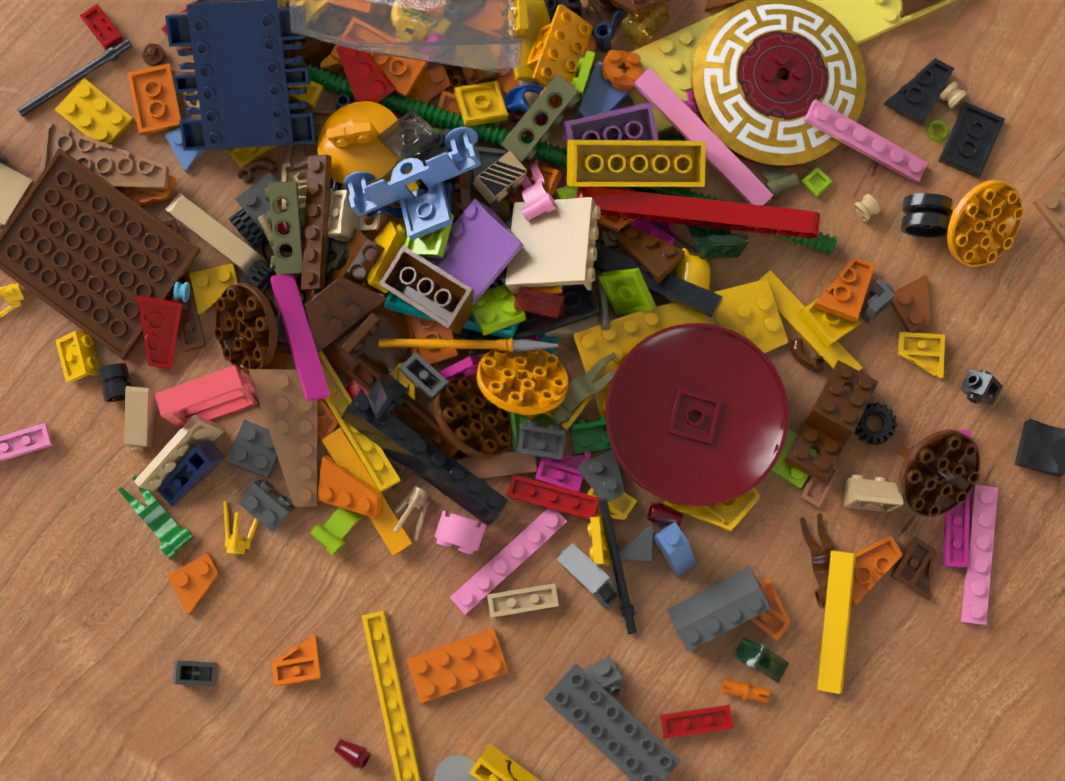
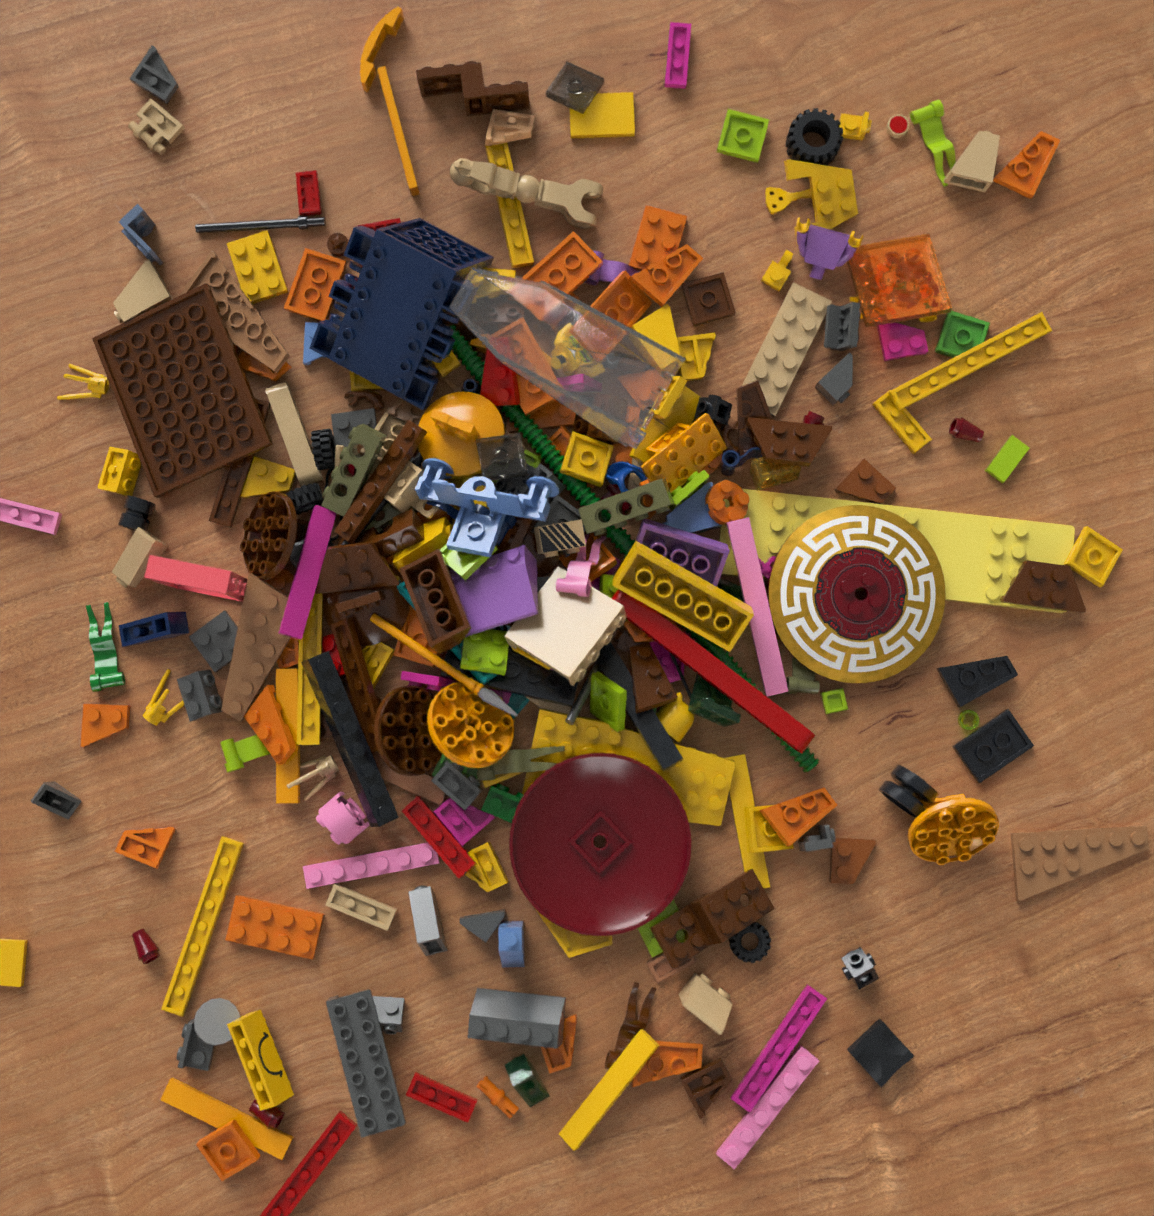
camera: 30 degrees right, 5 degrees up
(160, 329) = (200, 489): red wing -> none
(181, 291) = (235, 470): medium azure bush -> none
(194, 432) = (169, 600): tan wing -> none
(386, 395) = (347, 669): black slope -> none
(423, 375) = (390, 670): dark grey slope -> none
(539, 302) = (523, 669): clear red bracket -> none
(600, 551) = (455, 901): yellow plate -> none
(603, 475) = (490, 846): dark grey wing -> none
(626, 609) = (442, 967): black bar -> none
(663, 515) = (522, 908): dark red cone -> none
(799, 354) = (723, 842): reddish brown piece -> none
(865, 141) = (897, 694): bright pink plate -> none
(866, 208) = (862, 751): tan wheel -> none
(923, 351) = (831, 905): yellow wing -> none
(938, 472) = (771, 1022): reddish brown bracket -> none
(953, 95) = (1001, 697): tan wheel -> none

